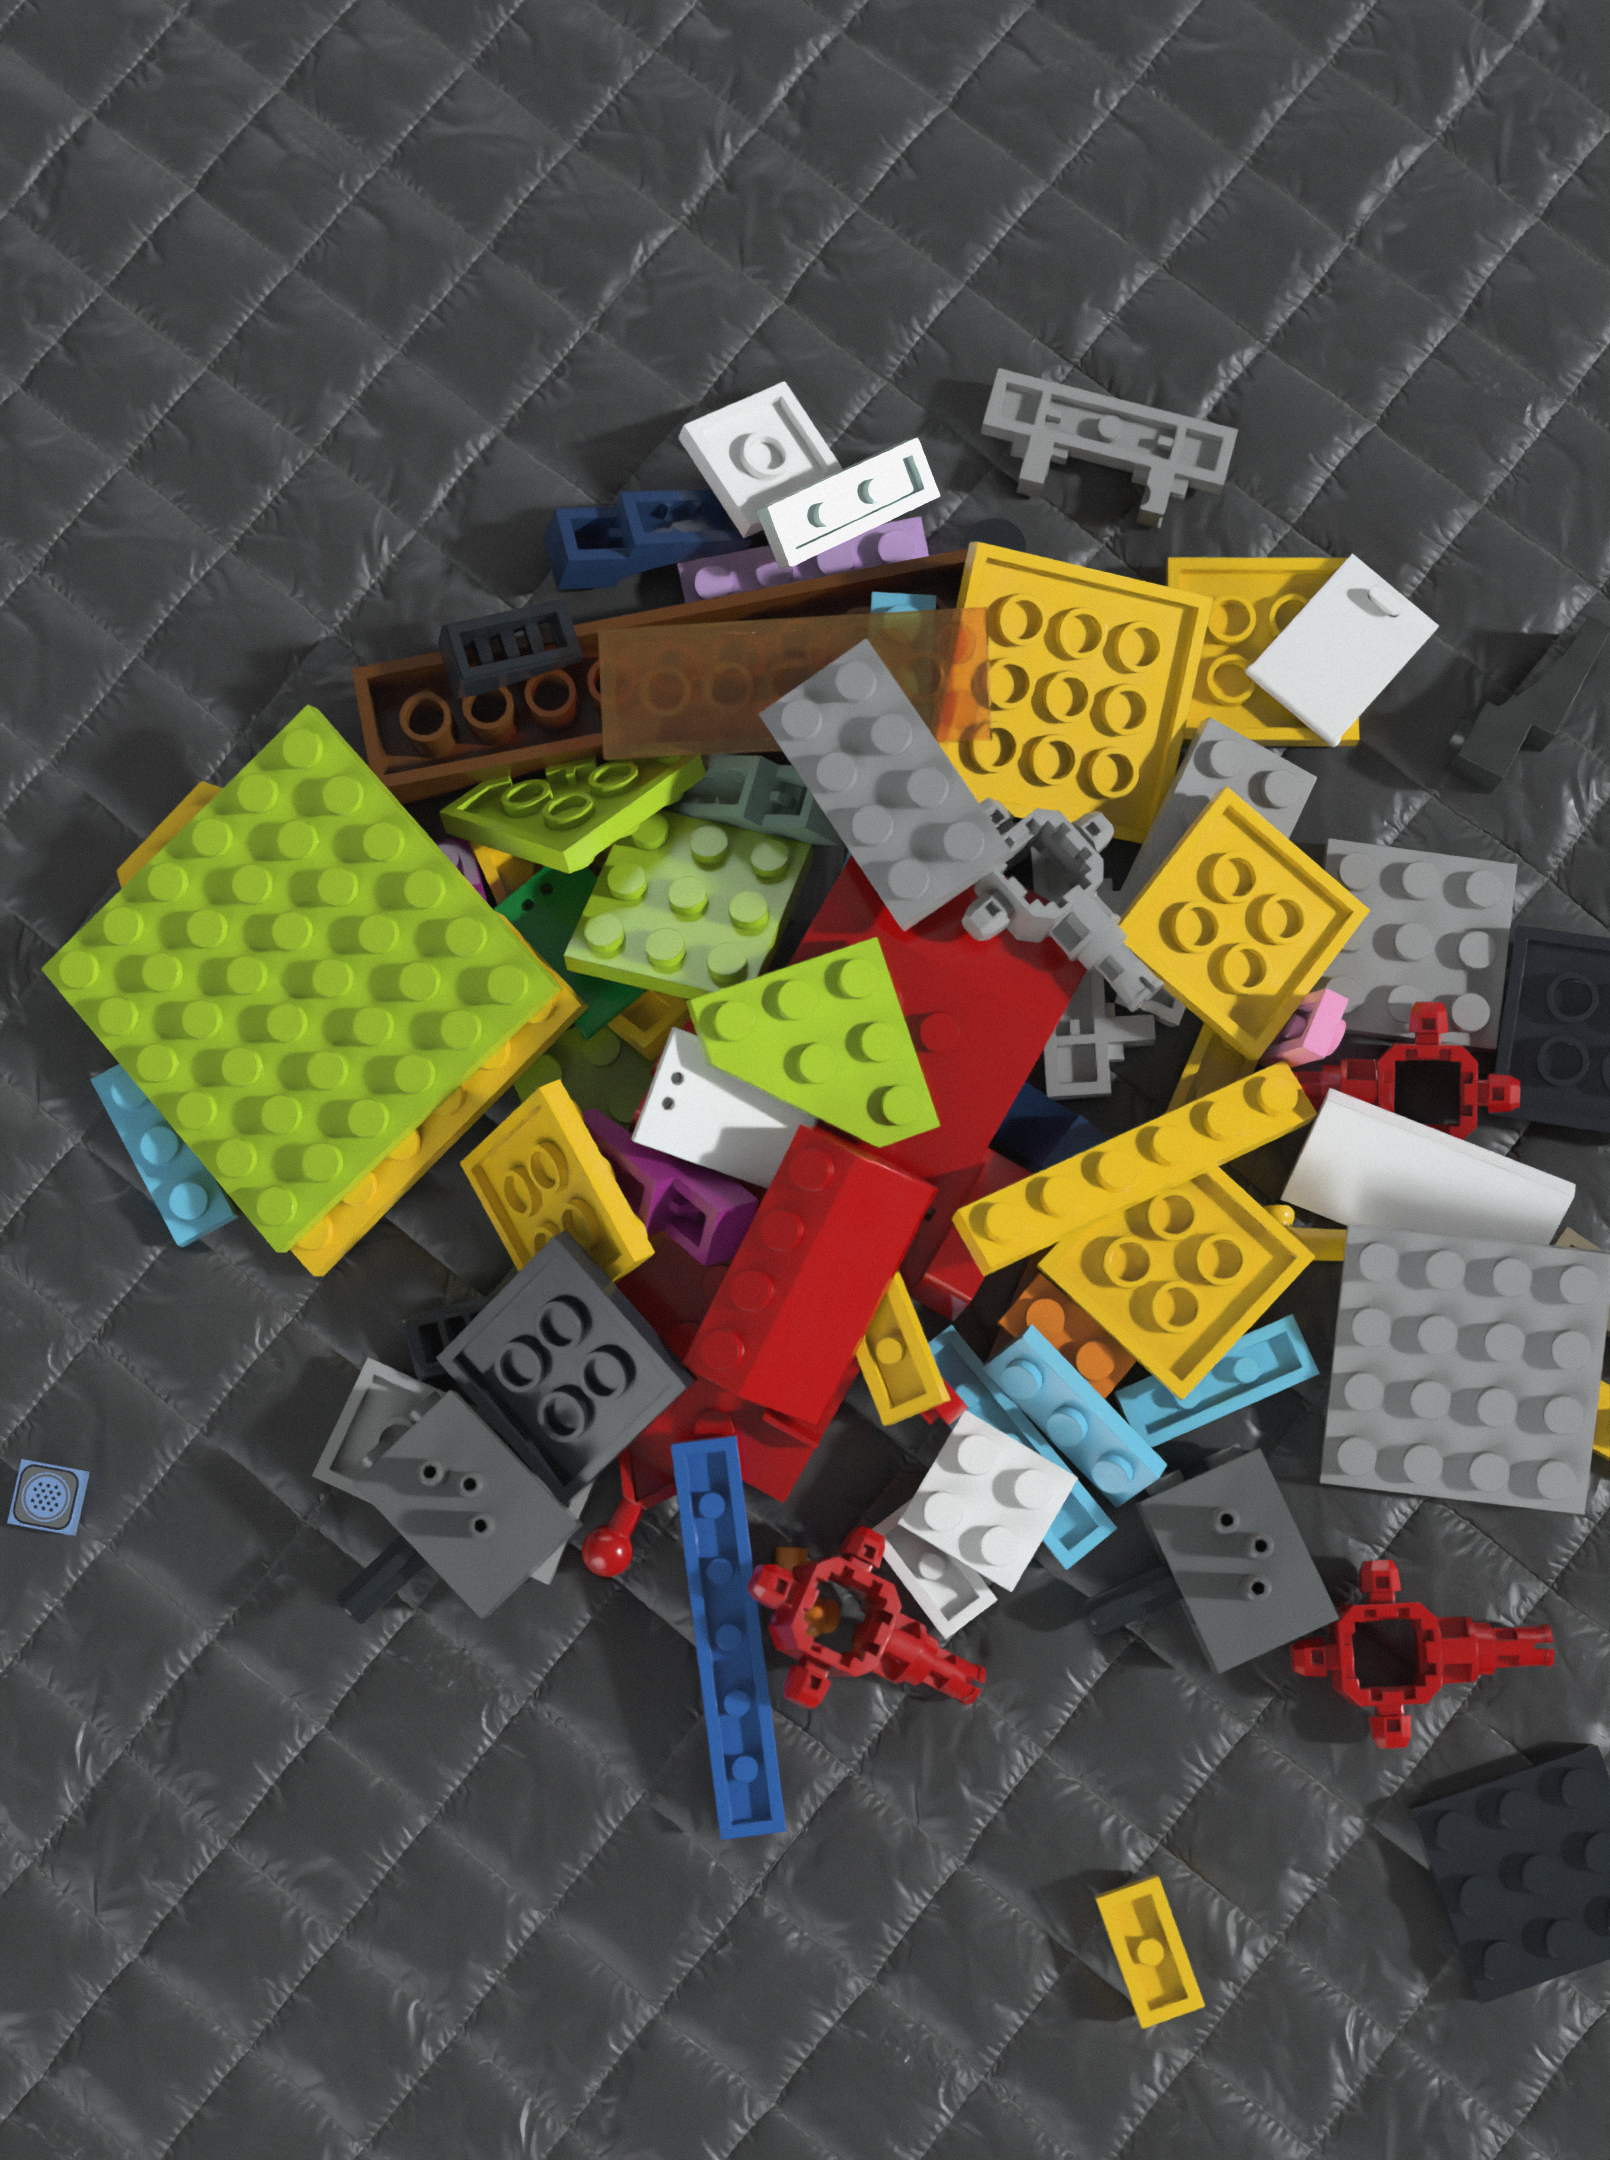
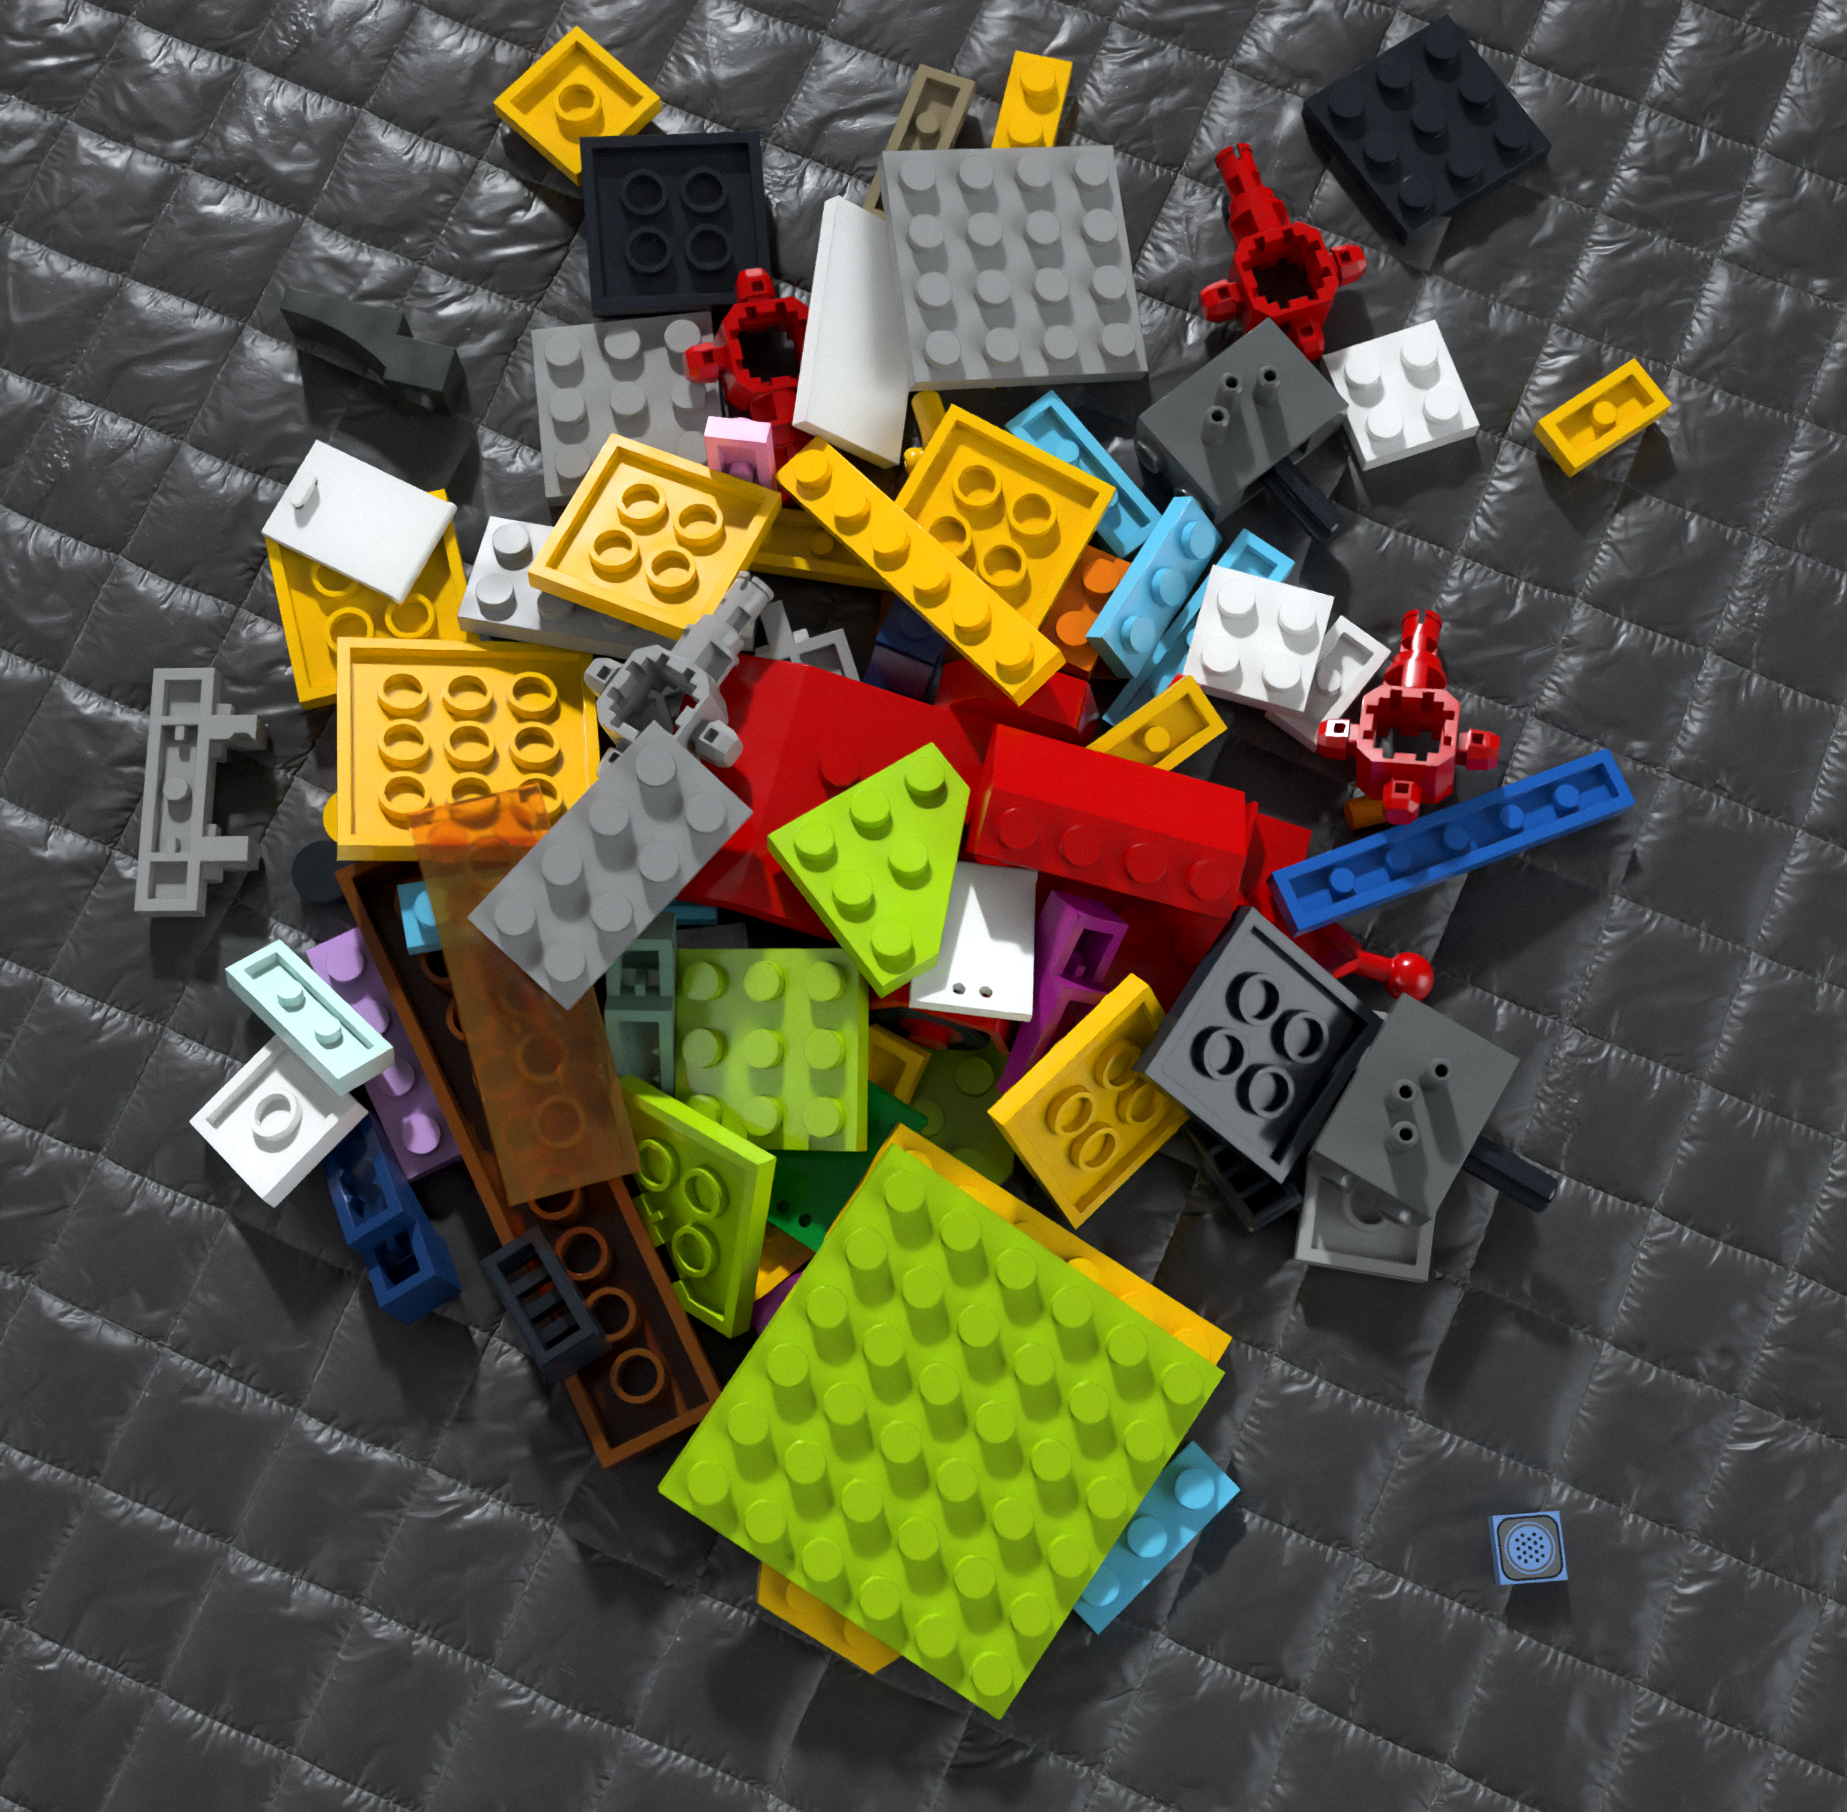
camera: 110 degrees left, 5 degrees down
(1232, 1743) = (1400, 395): none -> white plate

